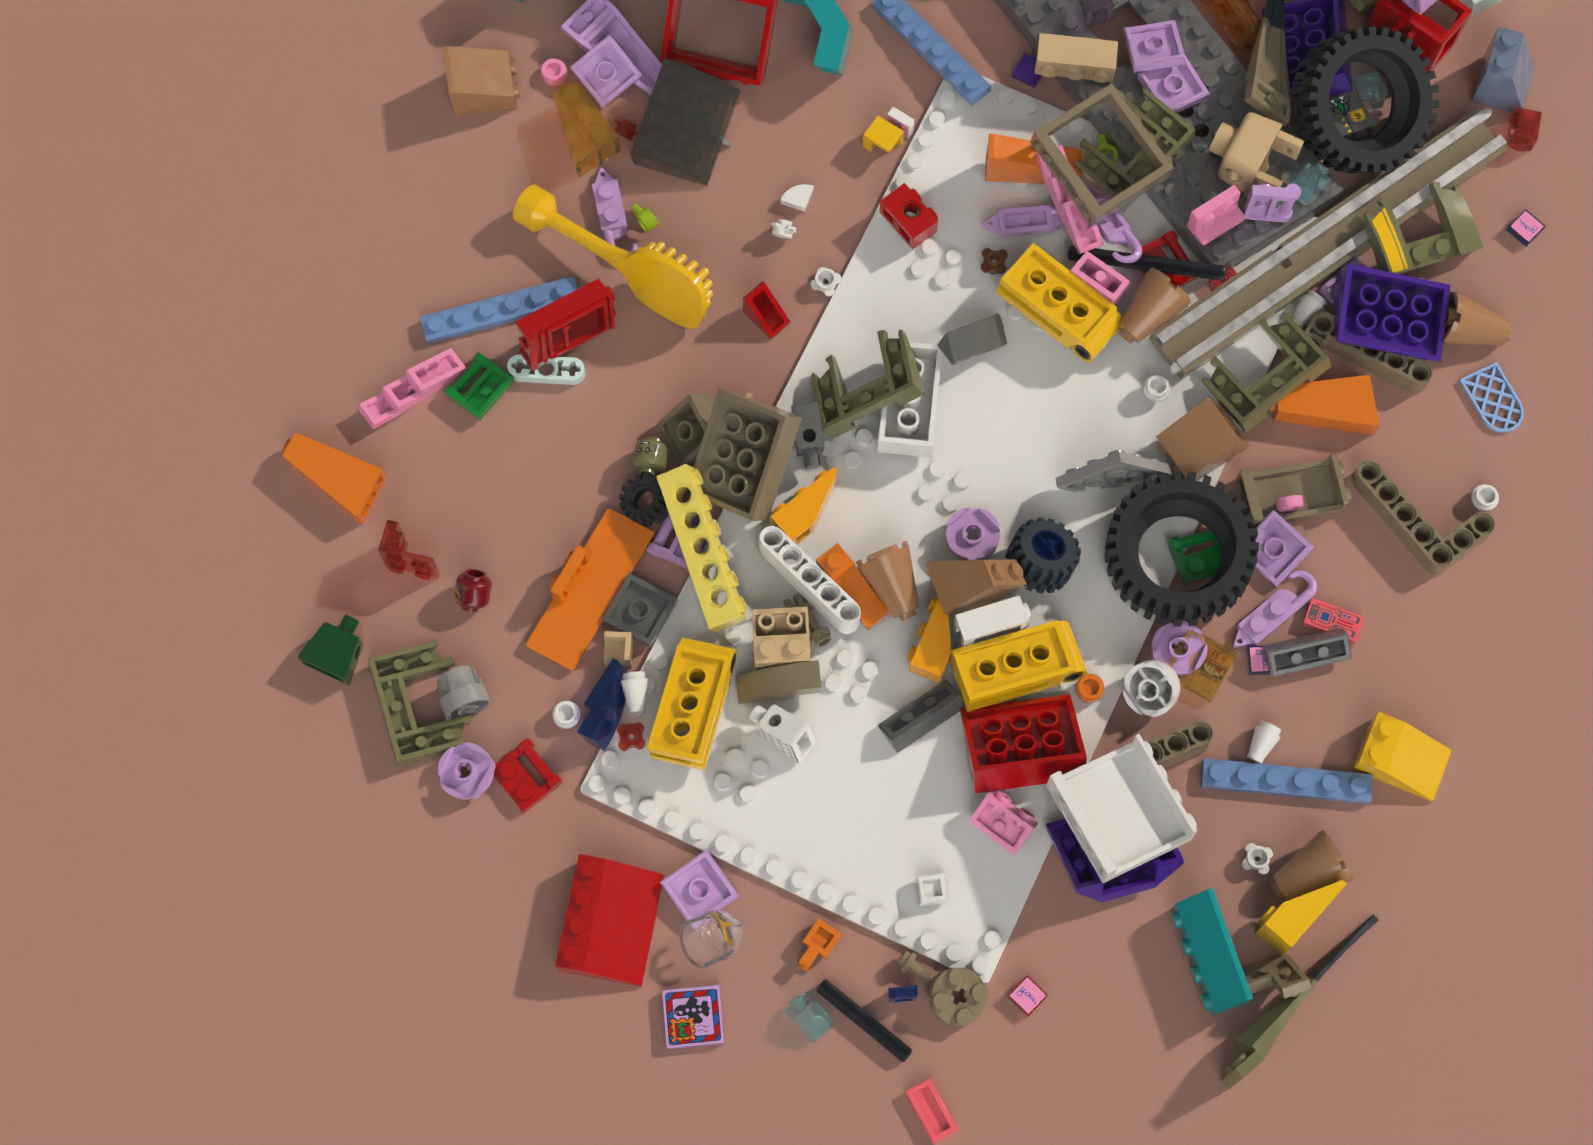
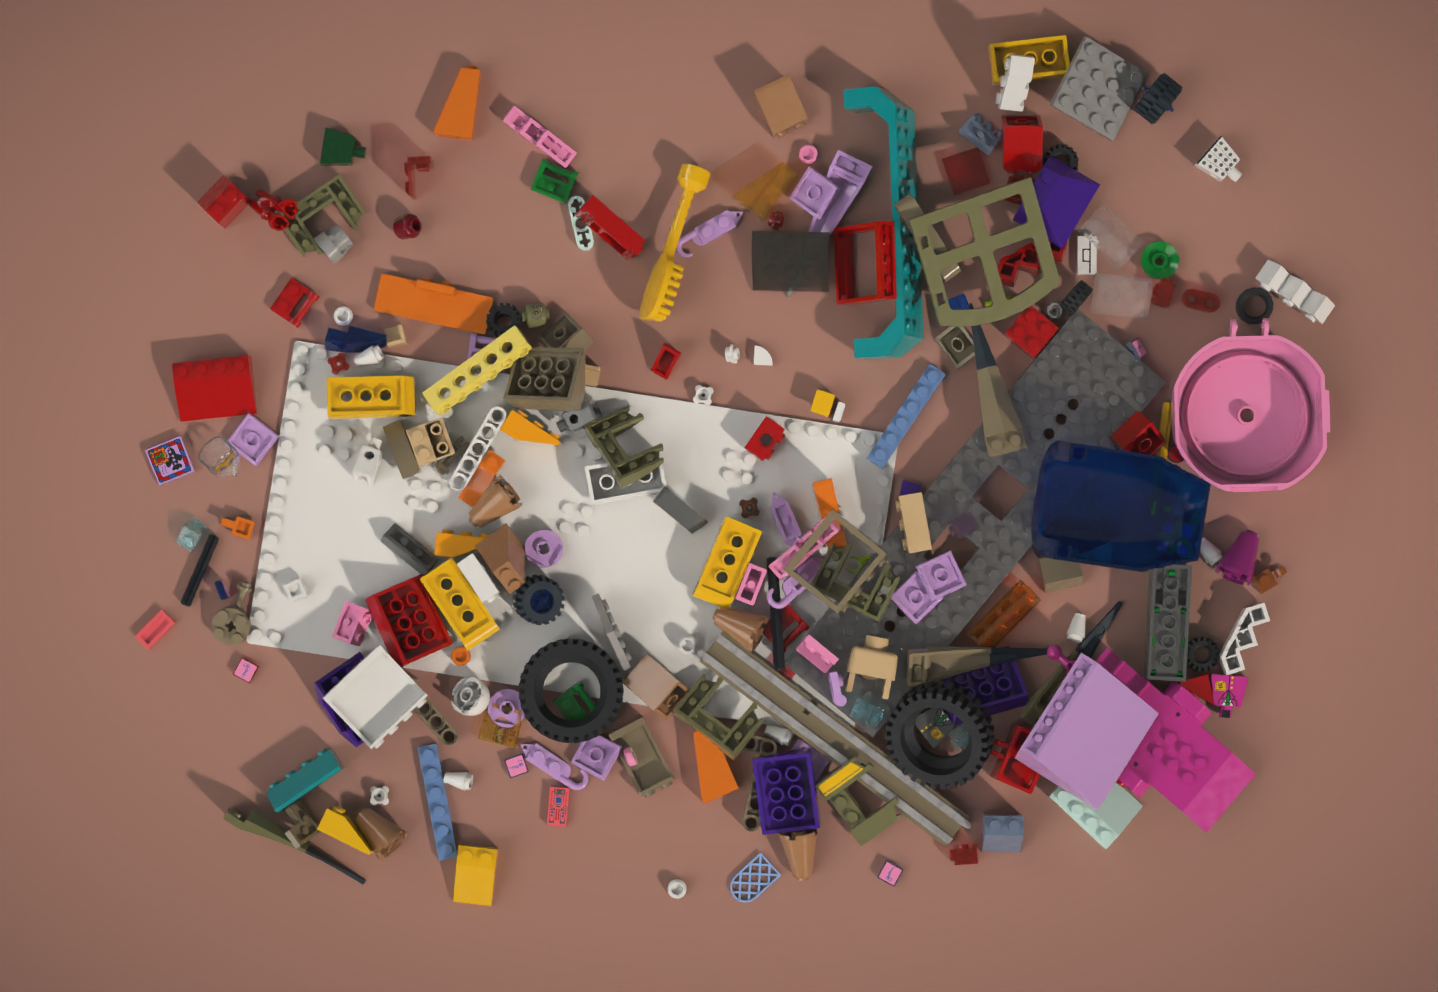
camera: 75 degrees right, 15 degrees up
(348, 827) = (223, 201): none -> red slope
(376, 769) = (268, 204): none -> red piece
(481, 771) = (286, 273): lavender plate -> none
(493, 311) = (615, 177): medium blue plate -> none
(640, 610) = (427, 341): dark grey plate -> none
(644, 218) = (712, 255): lime piece -> none
(1307, 652) = (529, 793): dark grey slope -> none
(1417, 522) = (642, 845): dark tan beam -> none

